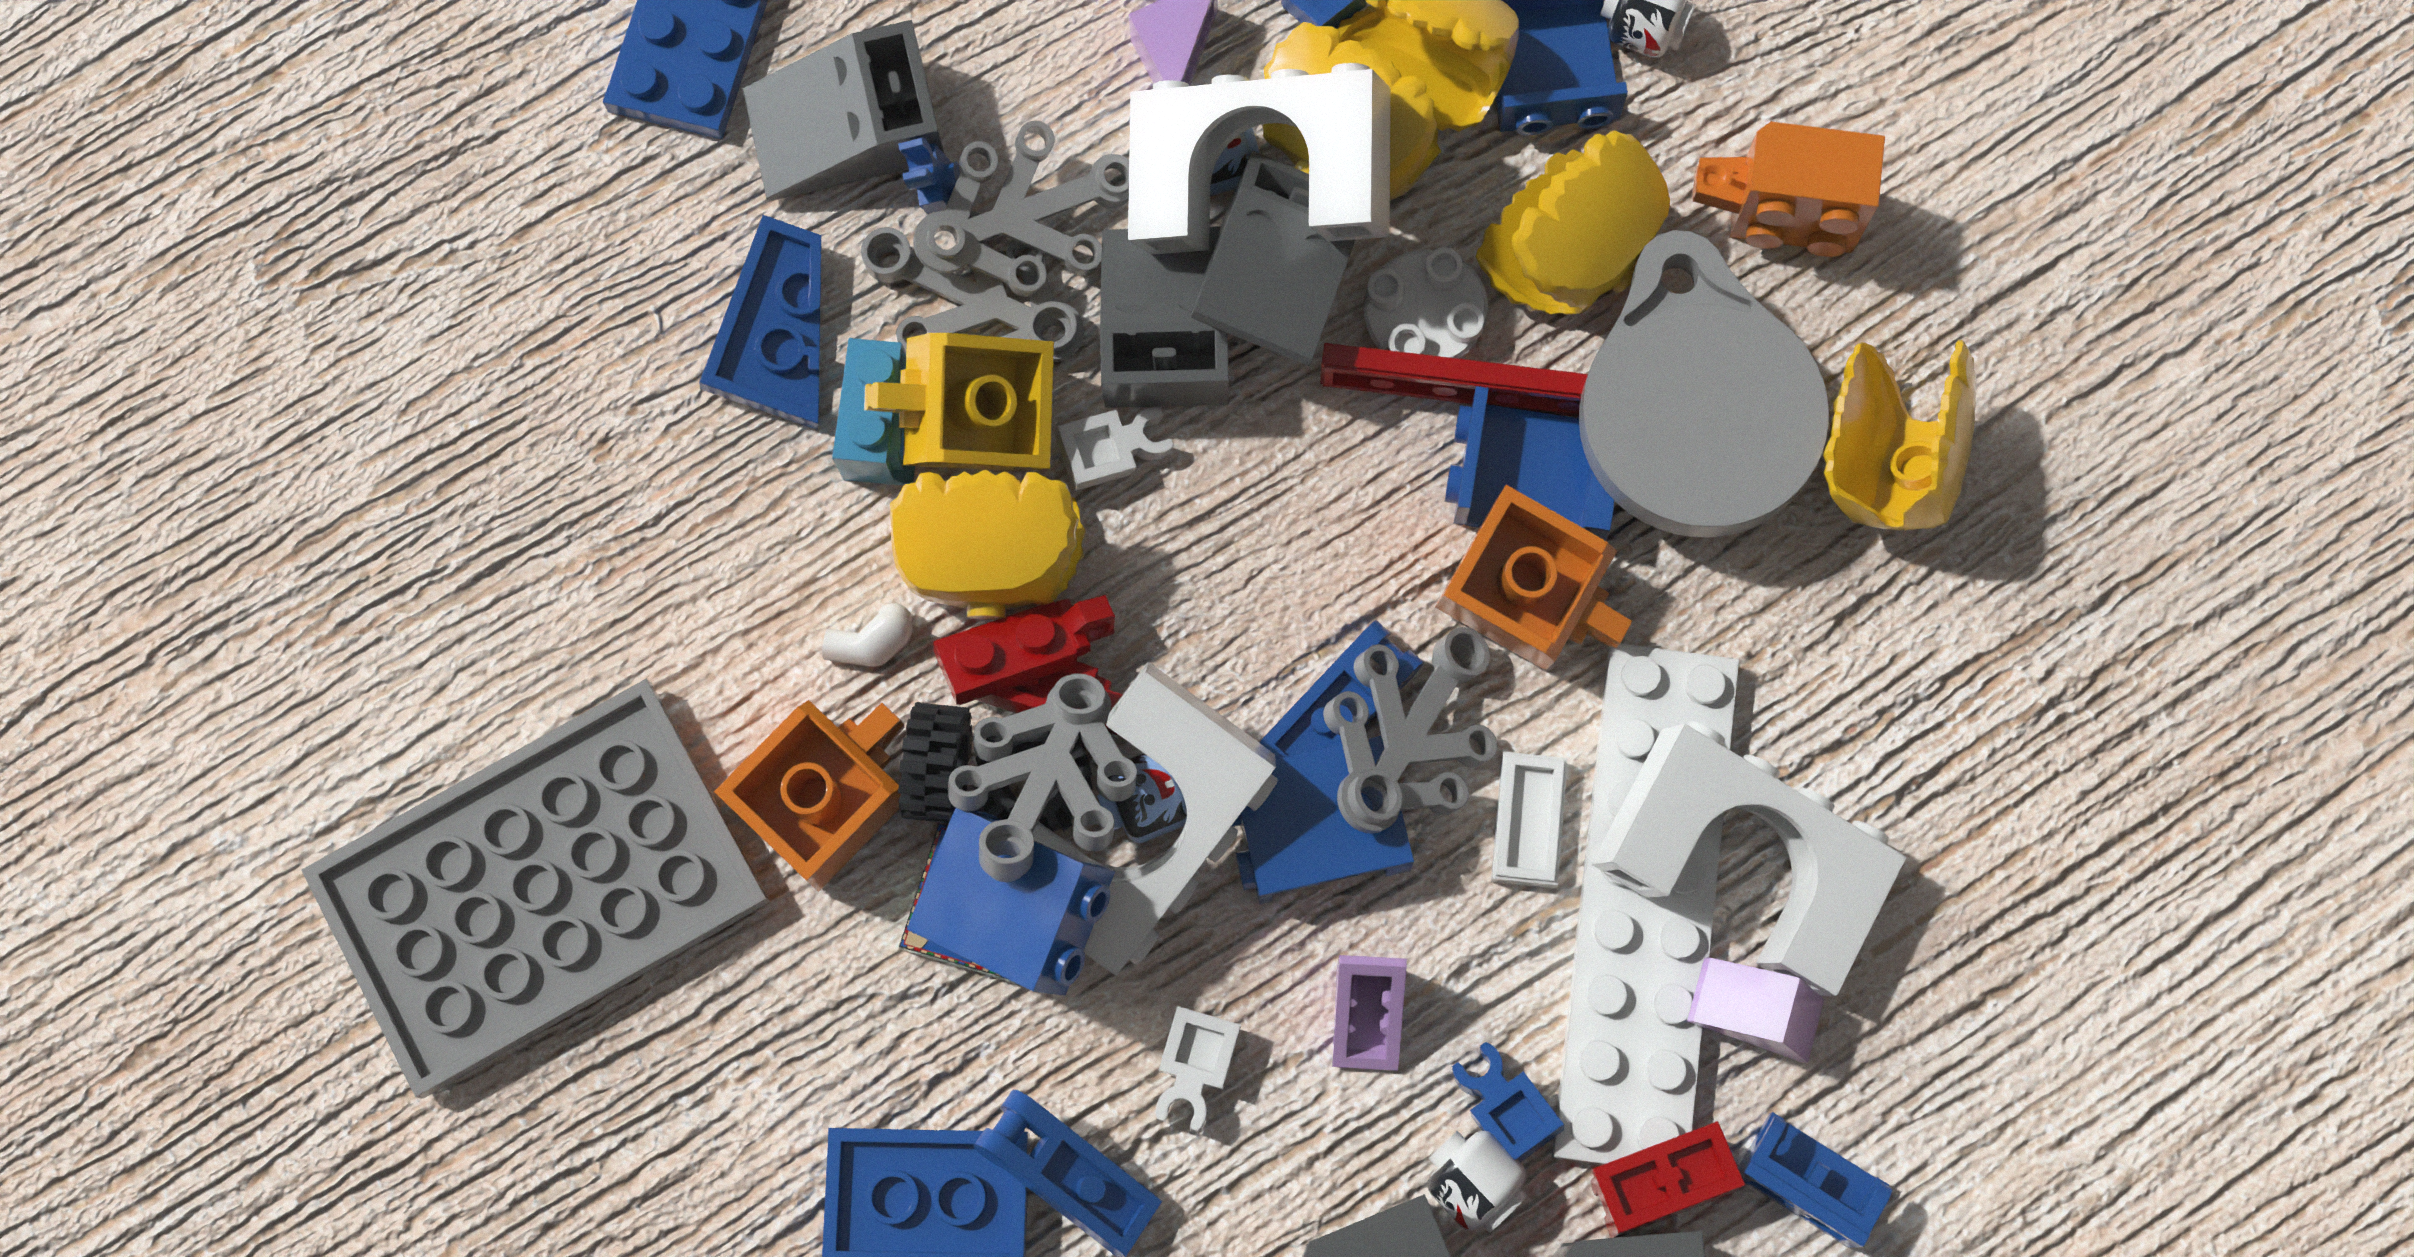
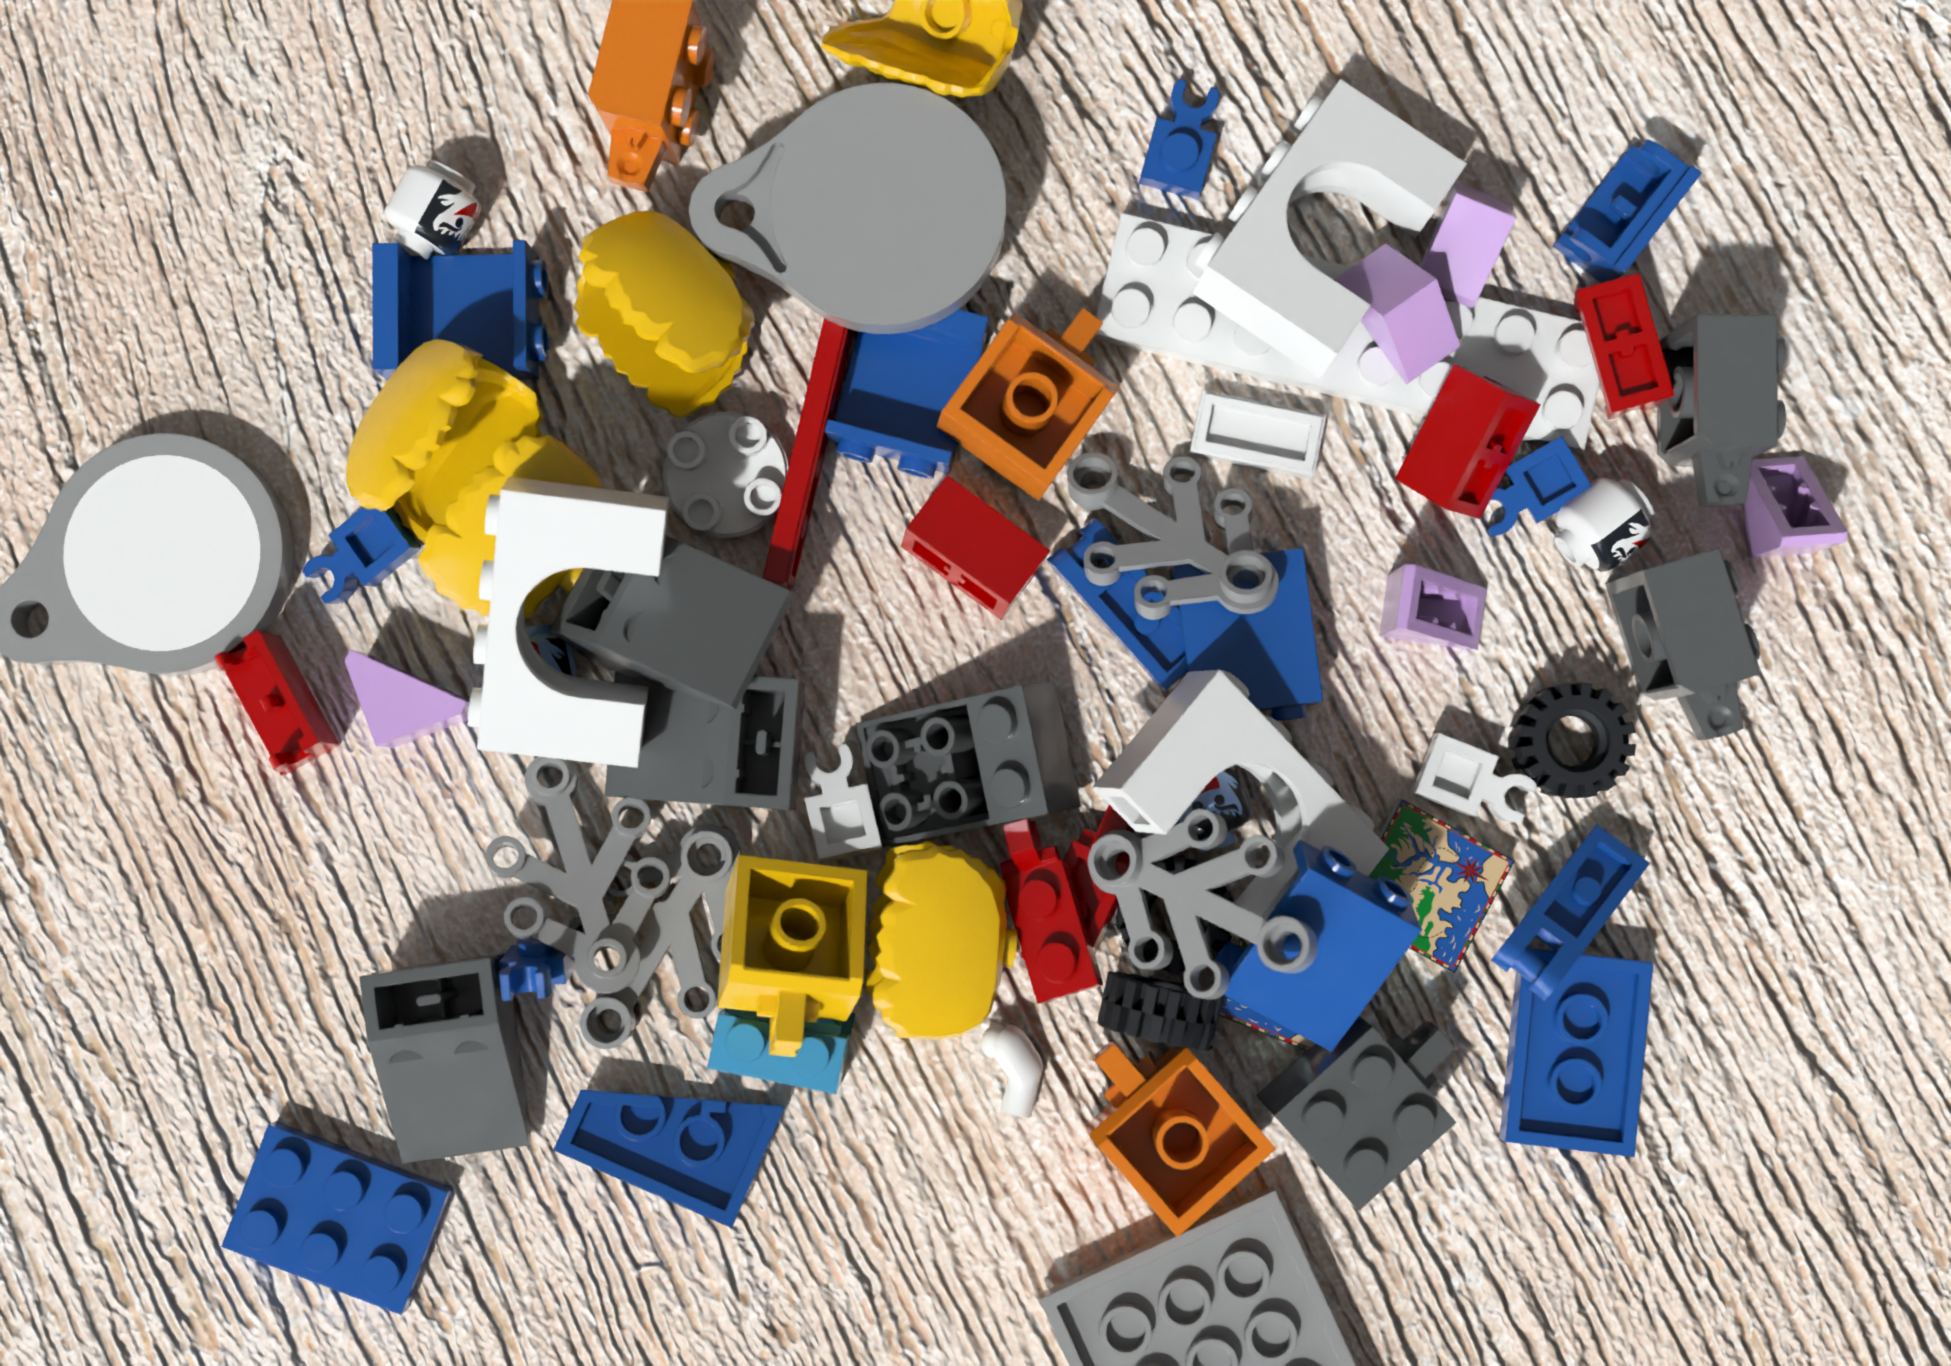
camera: 85 degrees left, 10 degrees up
(855, 973) = (1363, 1105): none -> dark grey hinge
(1088, 1040) = (1446, 875): none -> tile
(1166, 565) = (968, 763): none -> dark grey slope
(1240, 1125) = (1609, 734): none -> black tyre
(1380, 547) = (974, 547): none -> red hinge
(1543, 1024) = (1467, 442): none -> red hinge
(1670, 941) = (1405, 311): none -> lavender slope
(1812, 716) = (1180, 149): none -> blue plate

